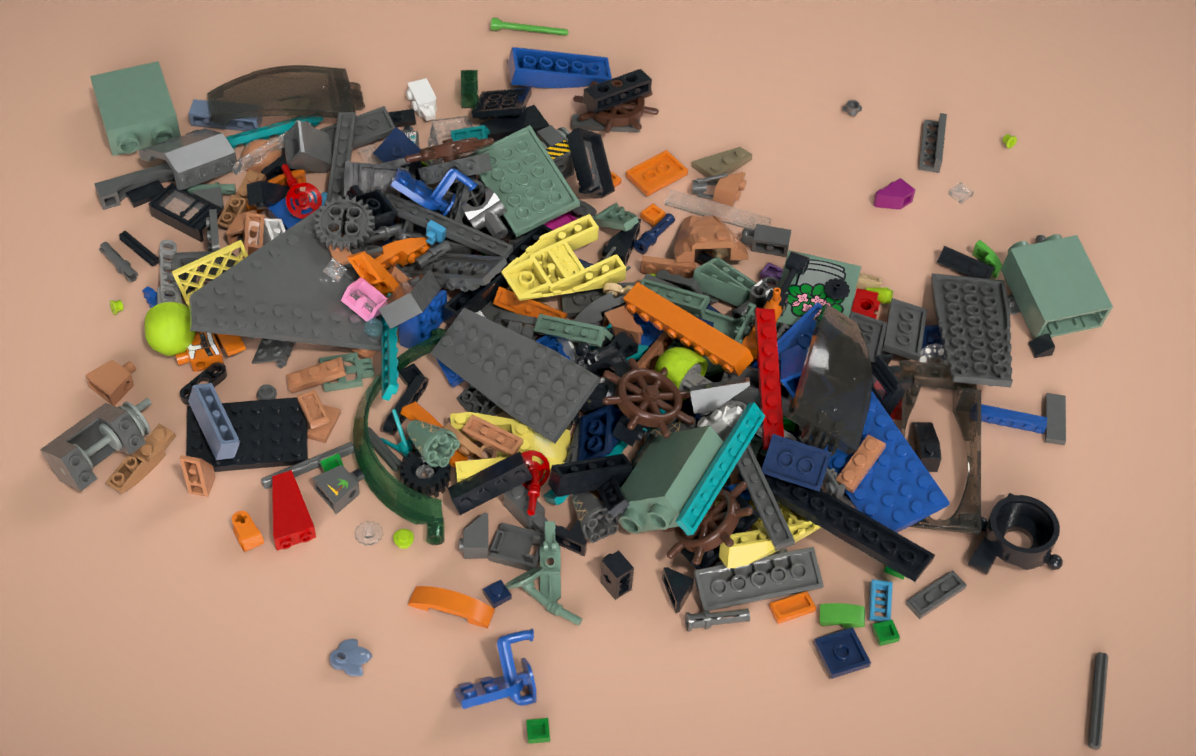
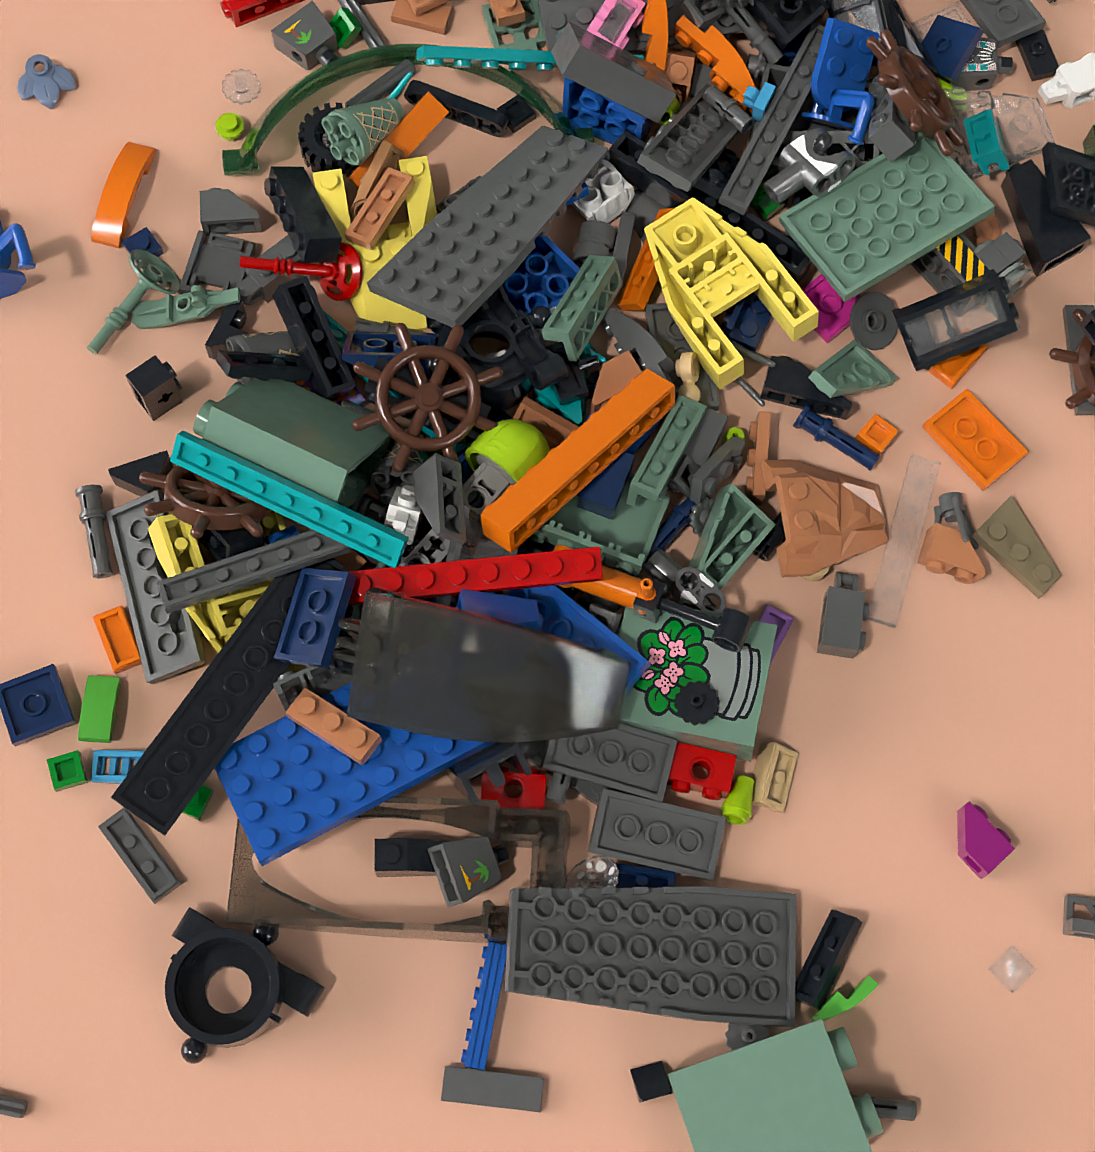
camera: 85 degrees right, 20 degrees up
(934, 417) = (467, 867): none -> dark grey torso

